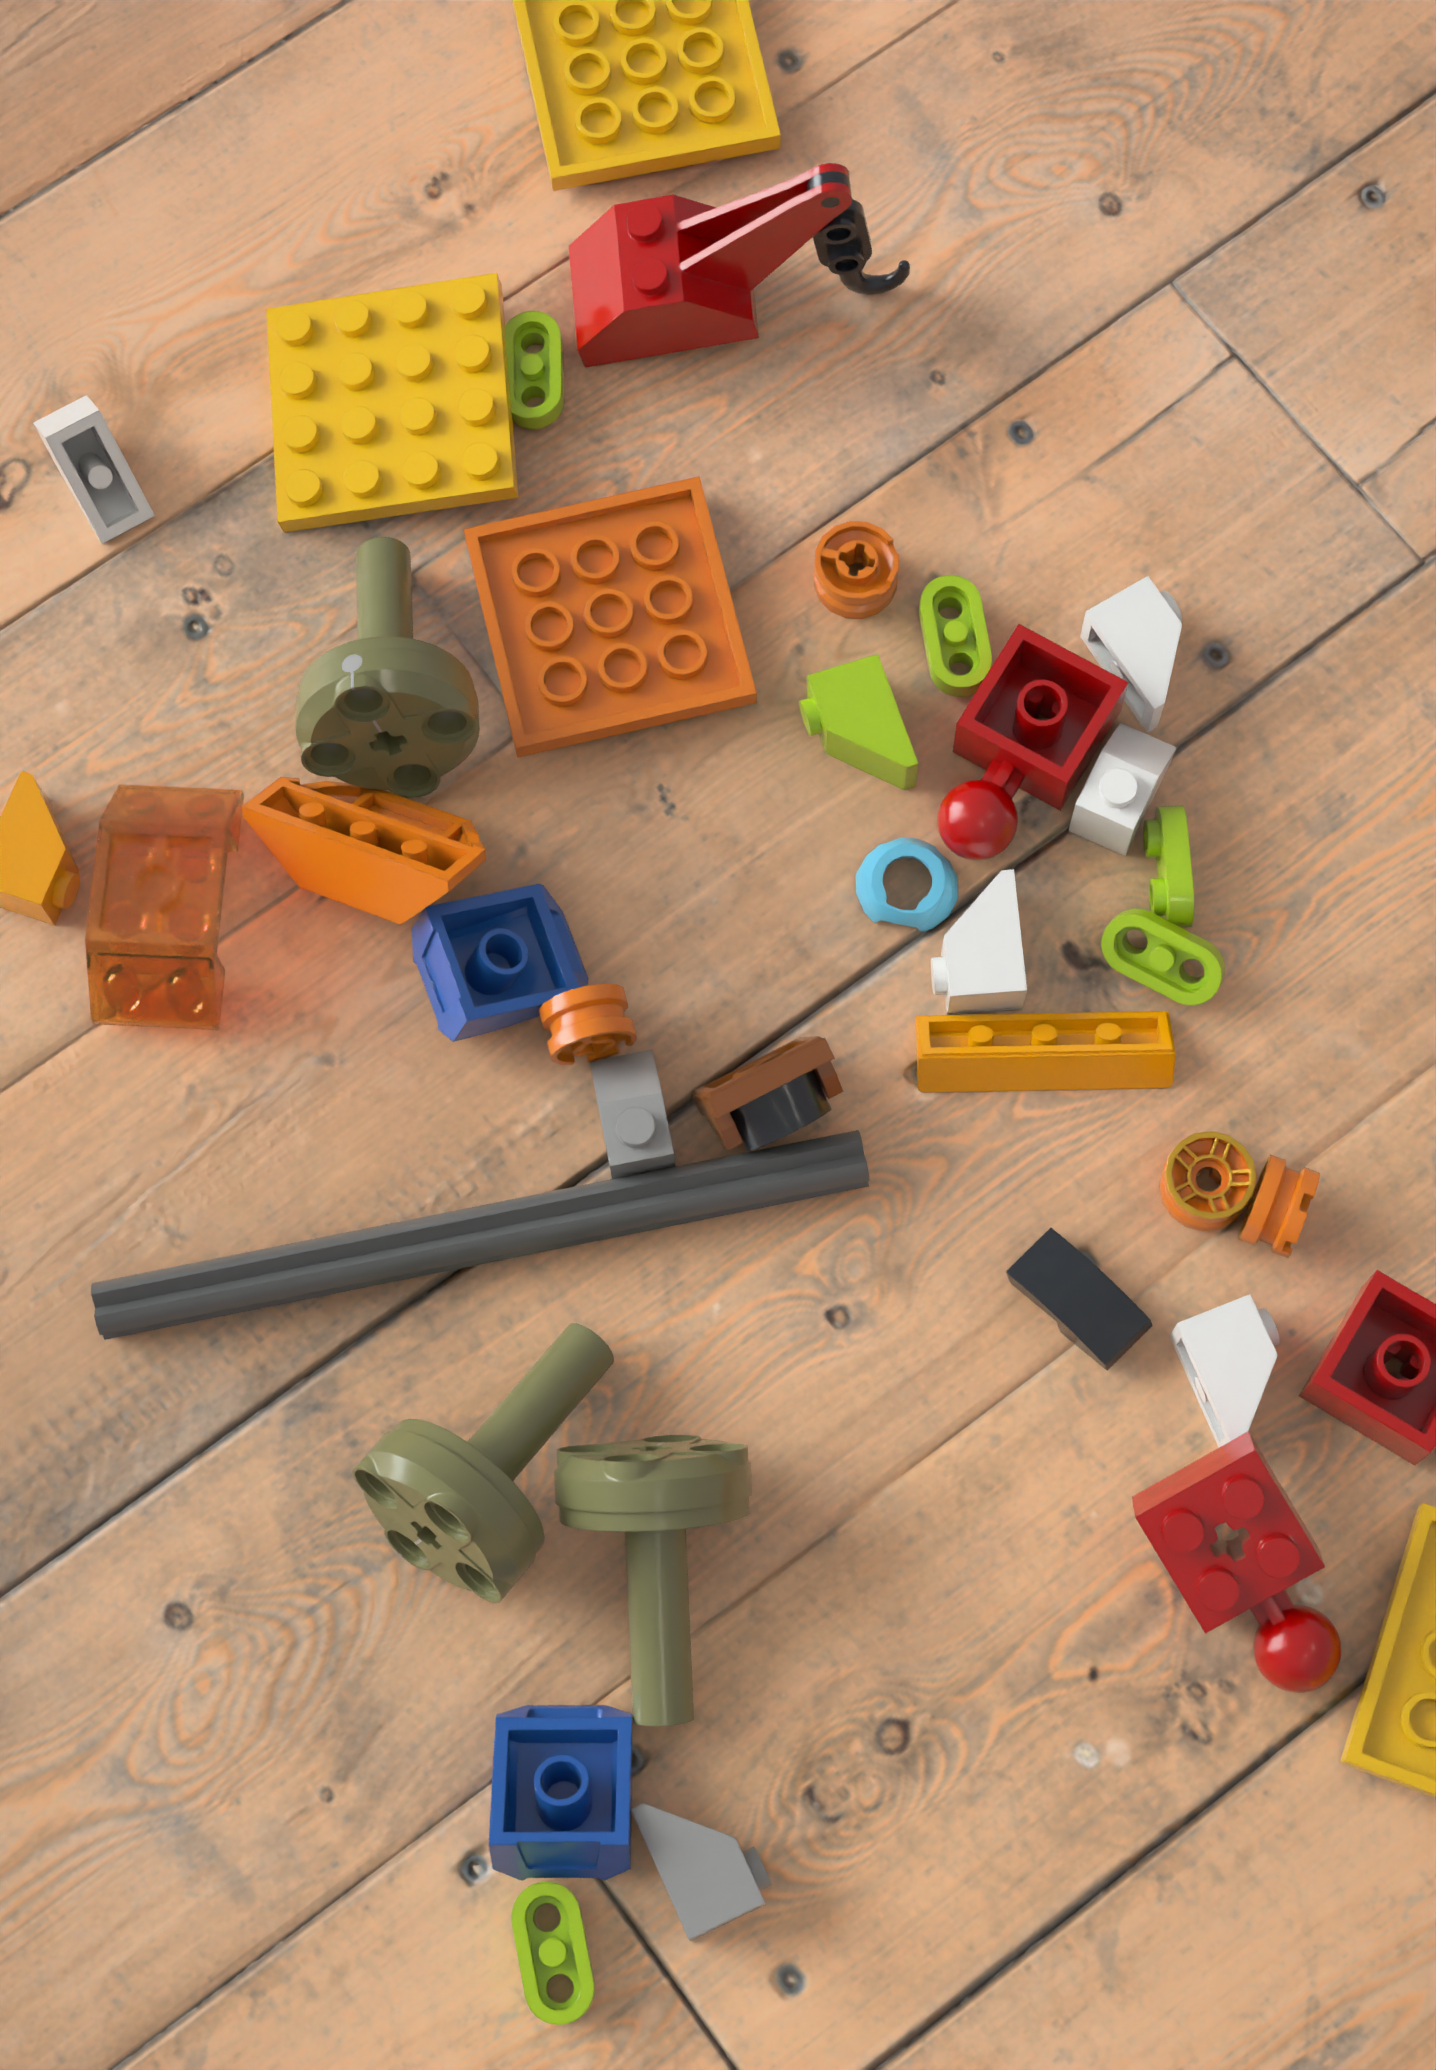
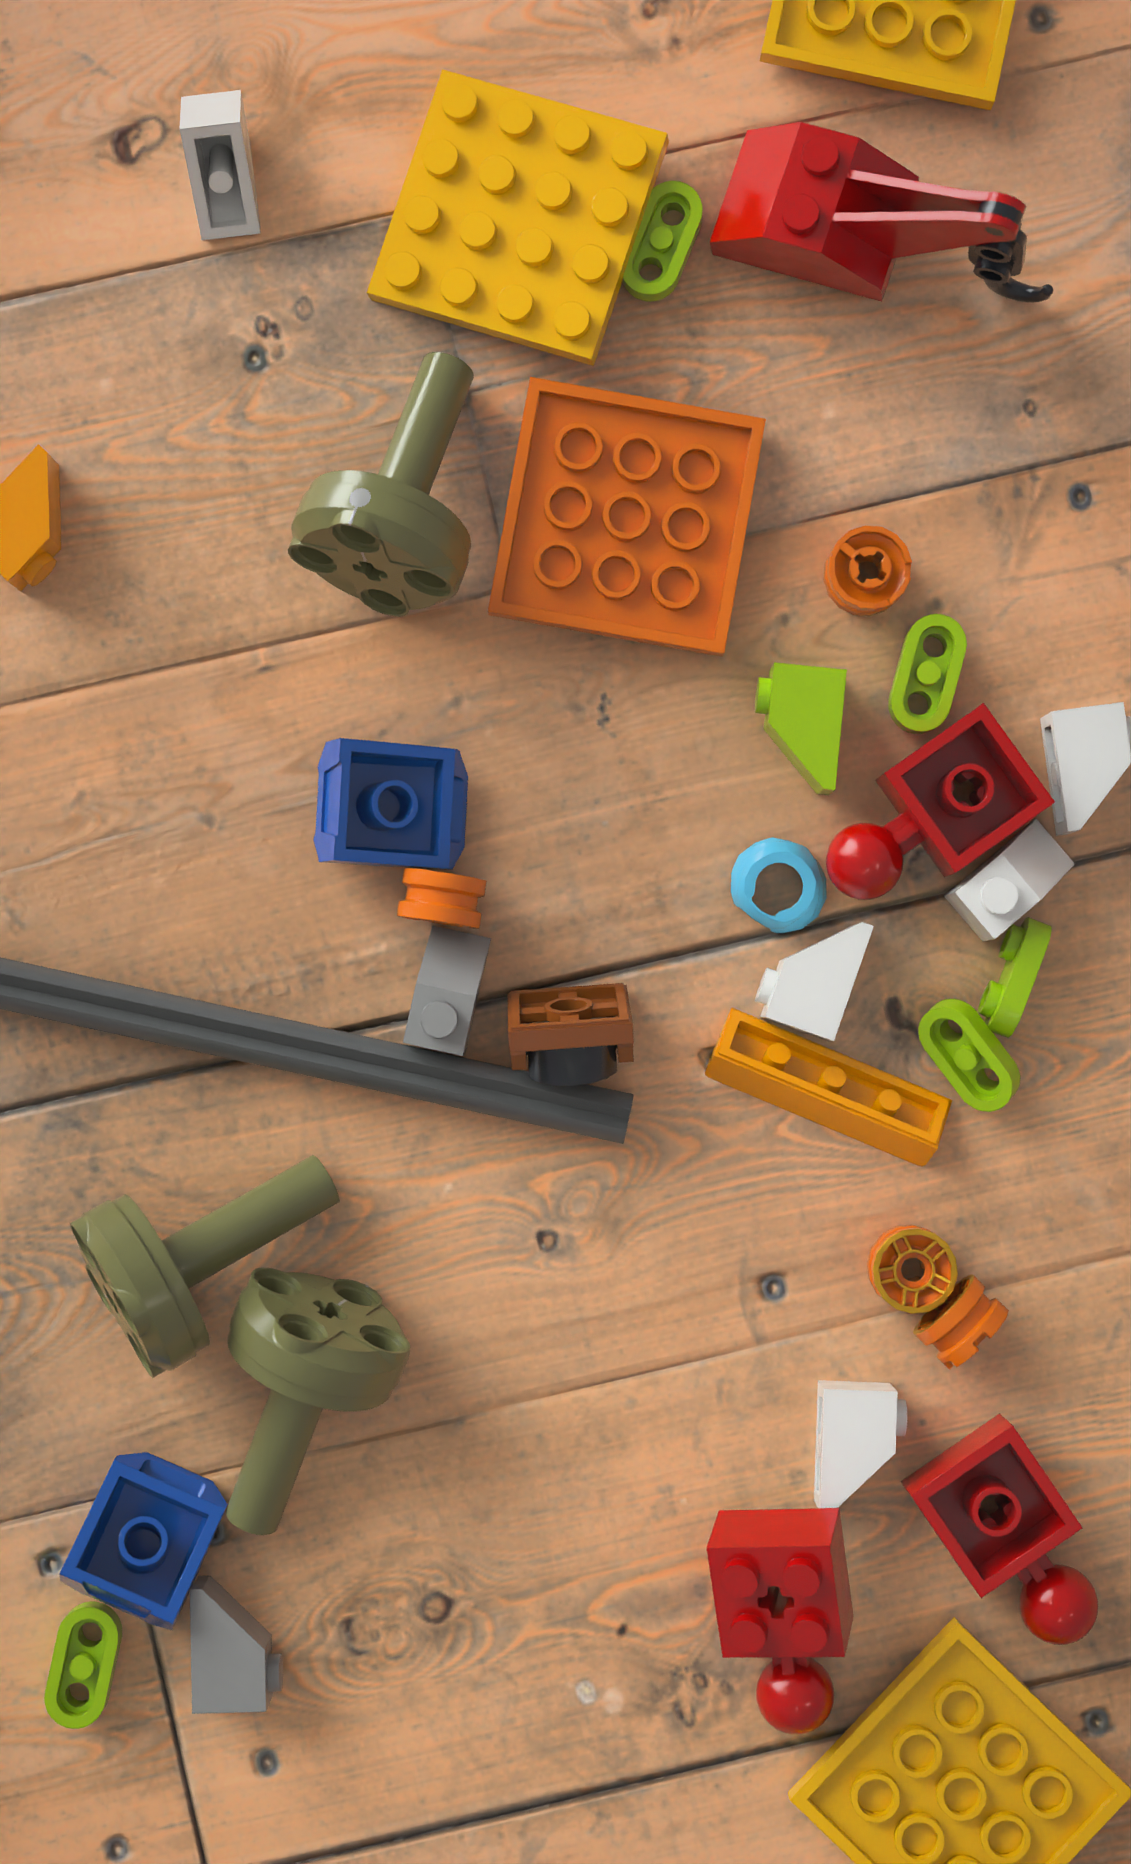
camera: 15 degrees right, 15 degrees up
(160, 906) = (117, 617): clear orange slope -> none
(364, 845) = (319, 650): orange wedge -> none
(1079, 1298) = (755, 1320): black slope -> none

